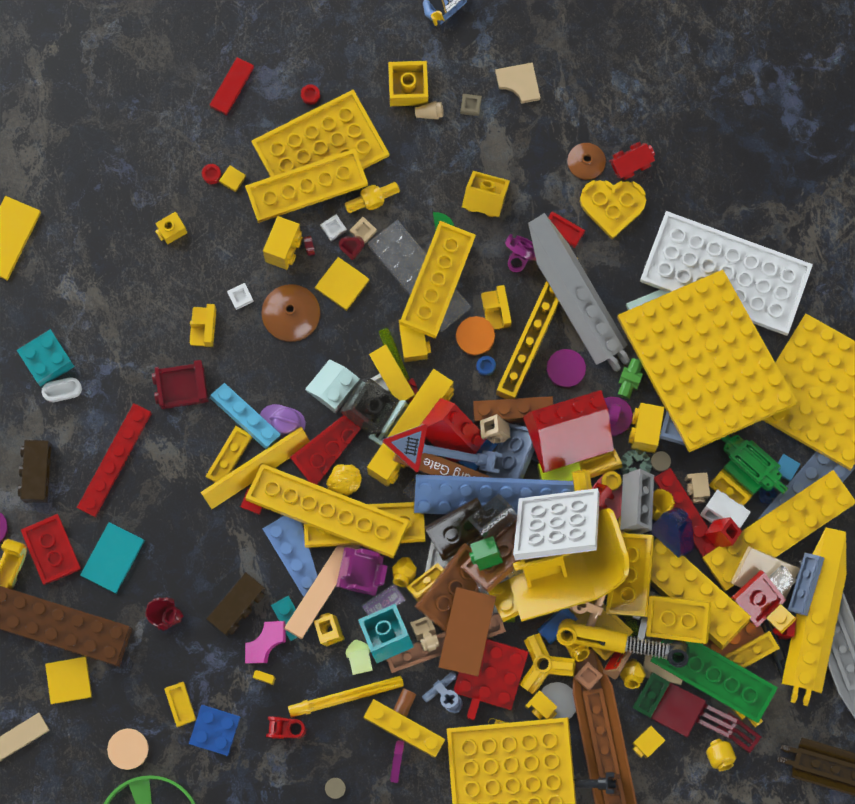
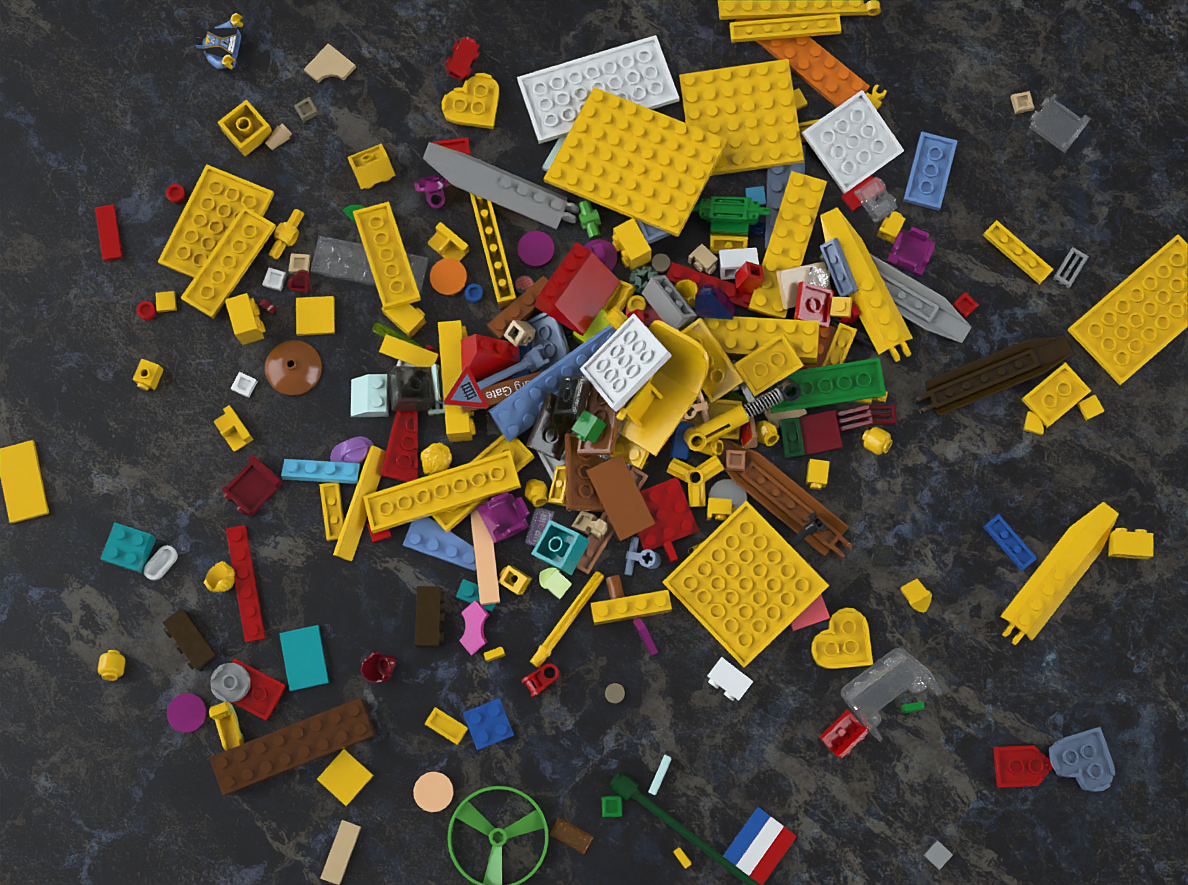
camera: 35 degrees left, 0 degrees up
(39, 531) = (230, 682): none -> light grey tile
(97, 439) = (220, 577): none -> yellow hair
(532, 389) = (523, 284): none -> coral tile
(582, 168) = (430, 93): dark orange dish -> none

